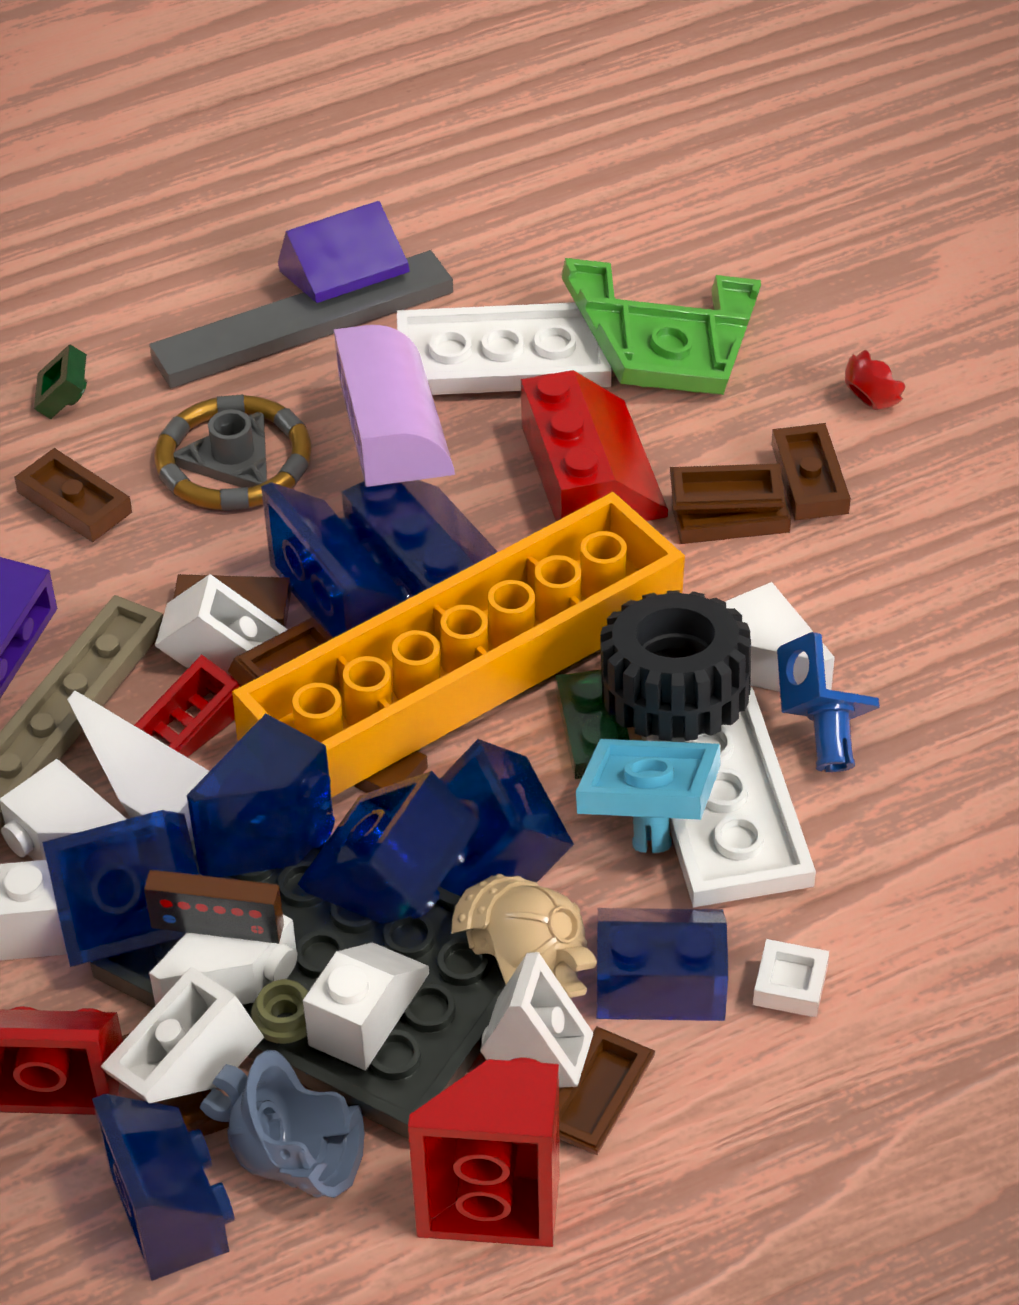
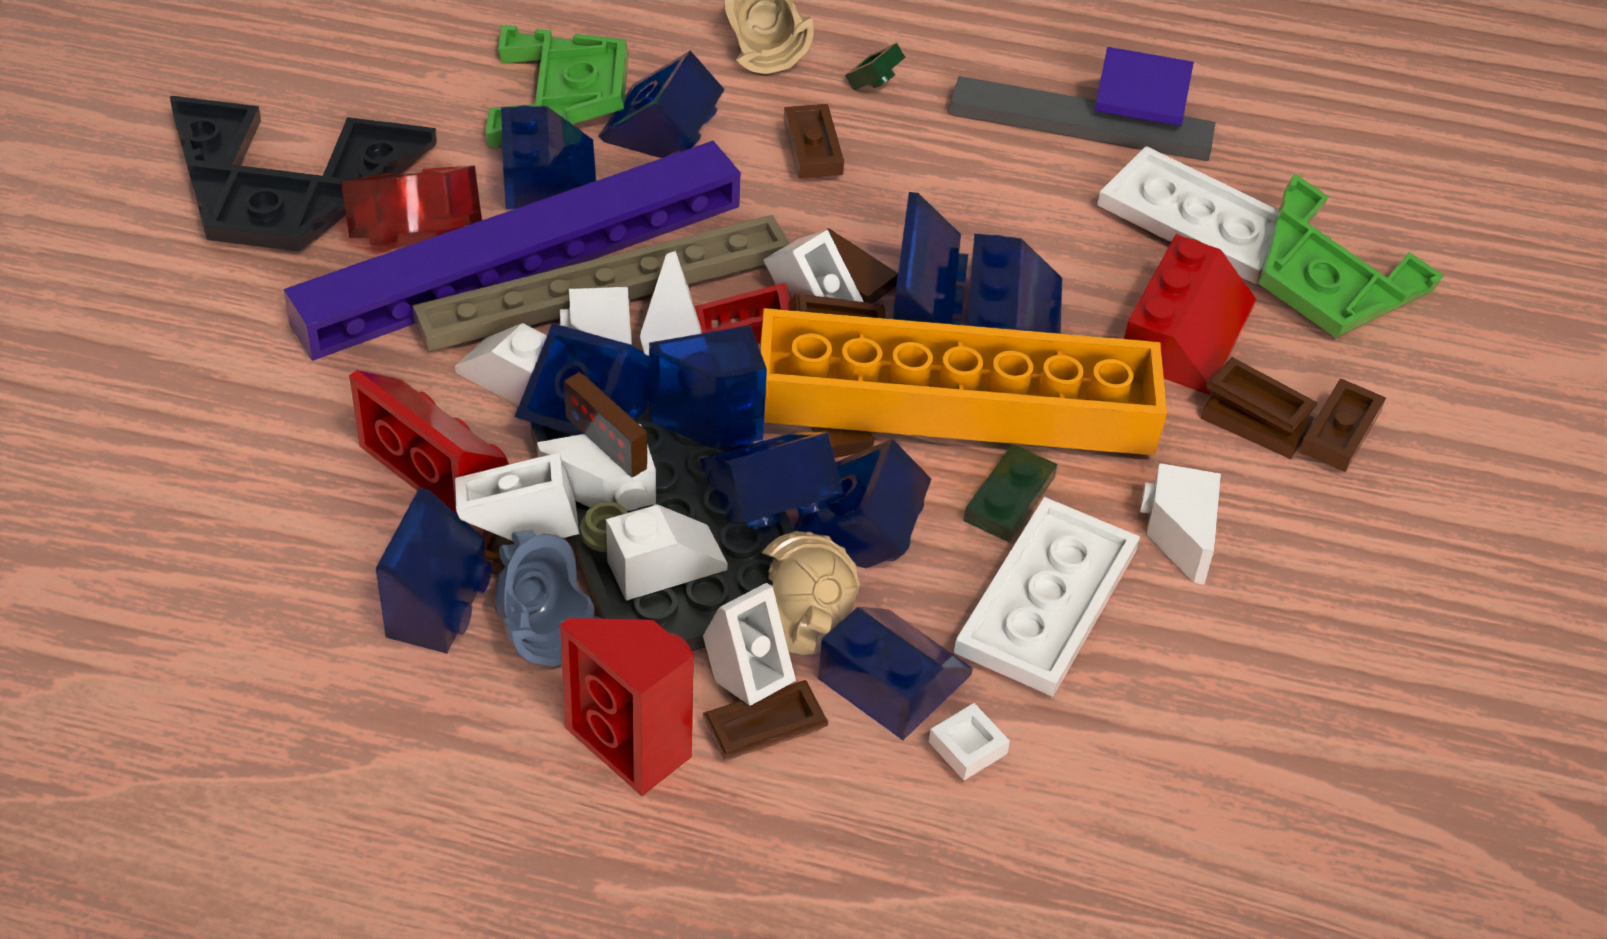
camera: 35 degrees right, 0 degrees up
(230, 452) = (948, 172): dark grey piece -> none
(390, 406) = (1060, 196): lavender brick -> none
(650, 784) = (988, 545): medium azure tile -> none
(675, 665) = (1085, 481): black tyre -> none
(827, 708) = (1177, 585): blue bracket -> none
(873, 382) = (1455, 393): red plate -> none

